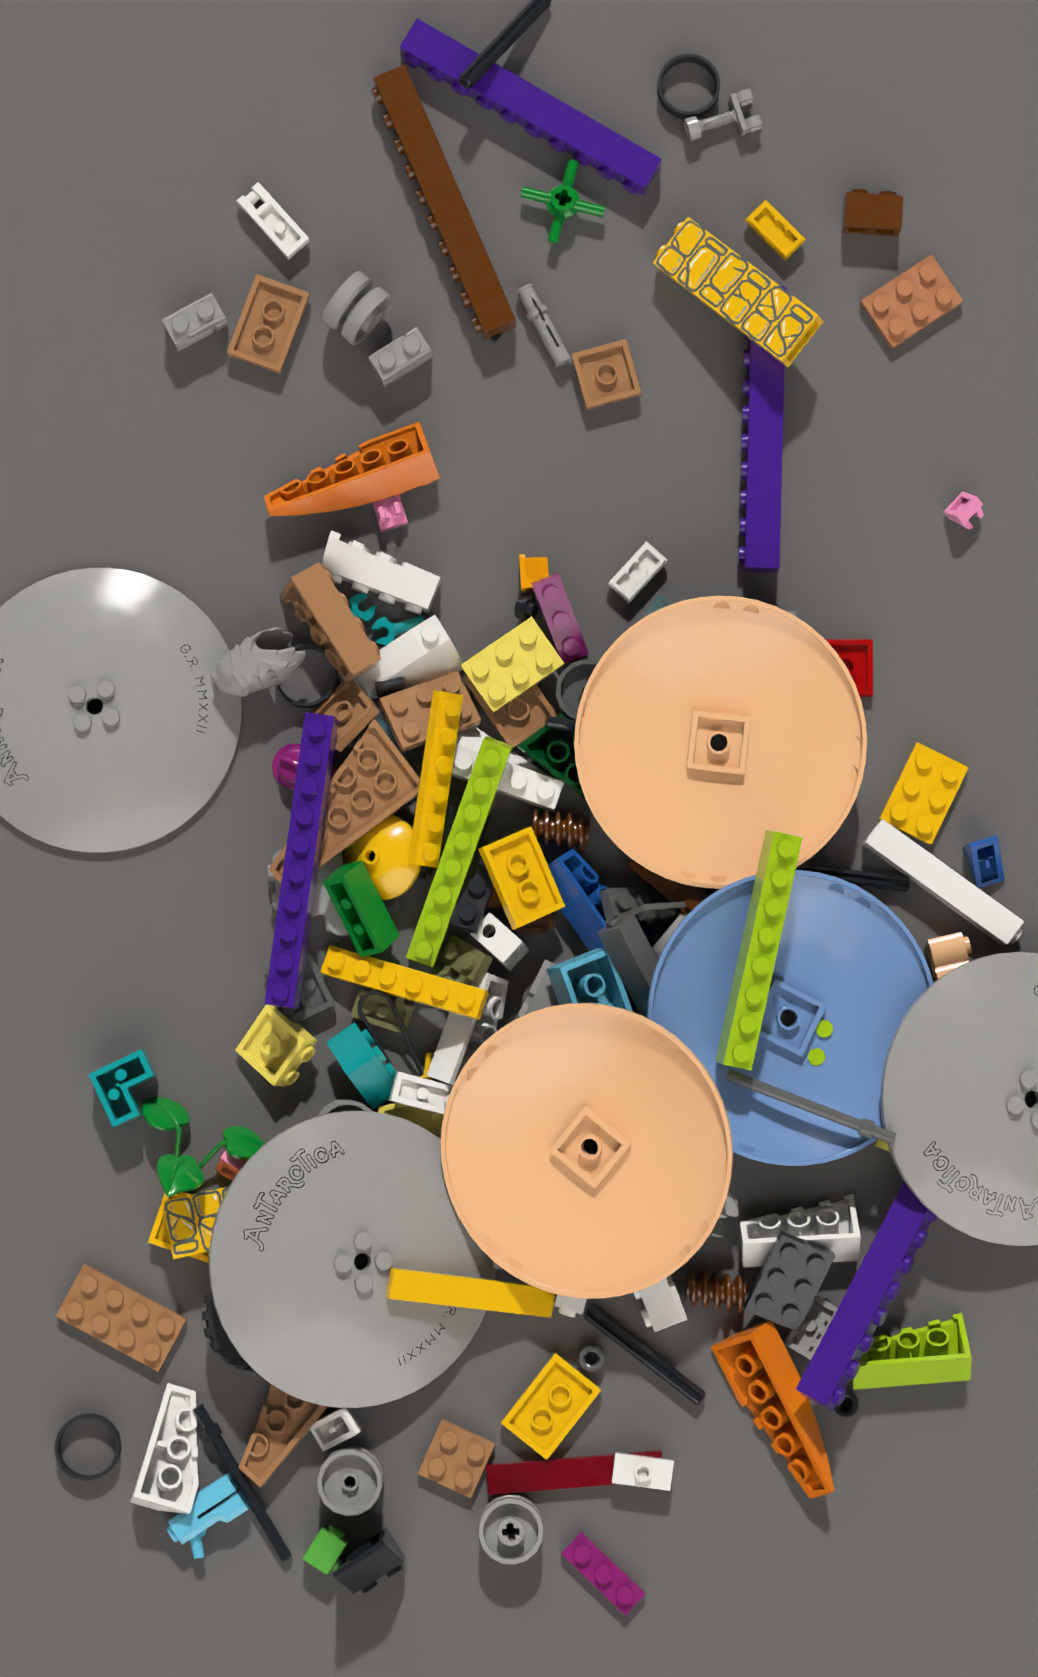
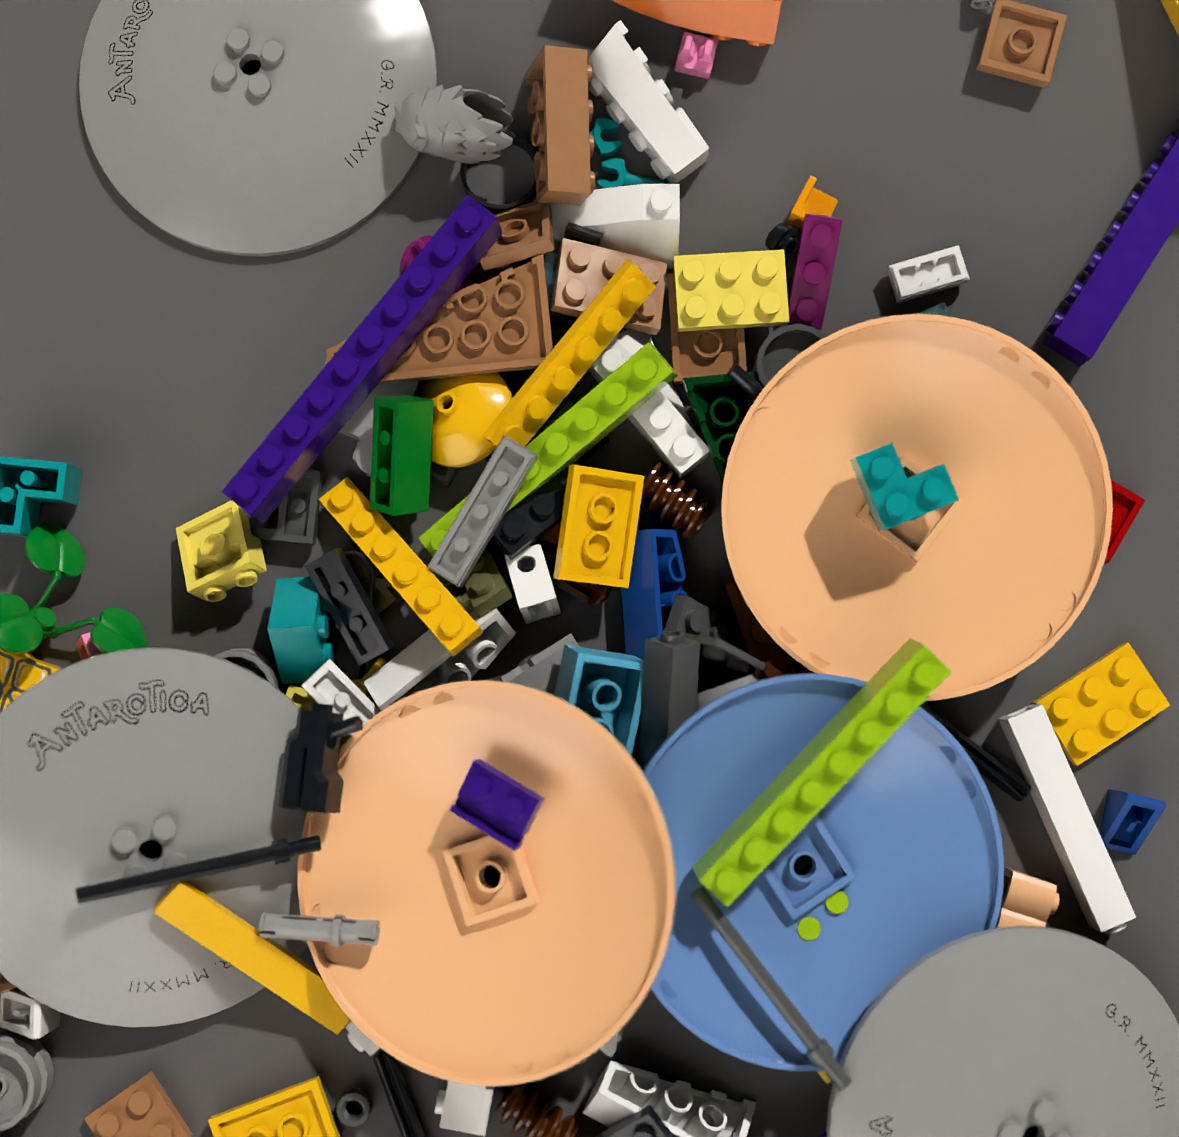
camera: 35 degrees right, 0 degrees up
(388, 1030) = (349, 606): none -> black plate
(428, 1142) = (311, 760): none -> black piece
(440, 914) = (482, 511): none -> light grey tile
(443, 1214) = (279, 852): none -> black bar
(505, 1245) = (313, 928): none -> light grey pin
(566, 1096) = (497, 804): none -> dark purple plate
(705, 743) = (893, 495): none -> teal brick

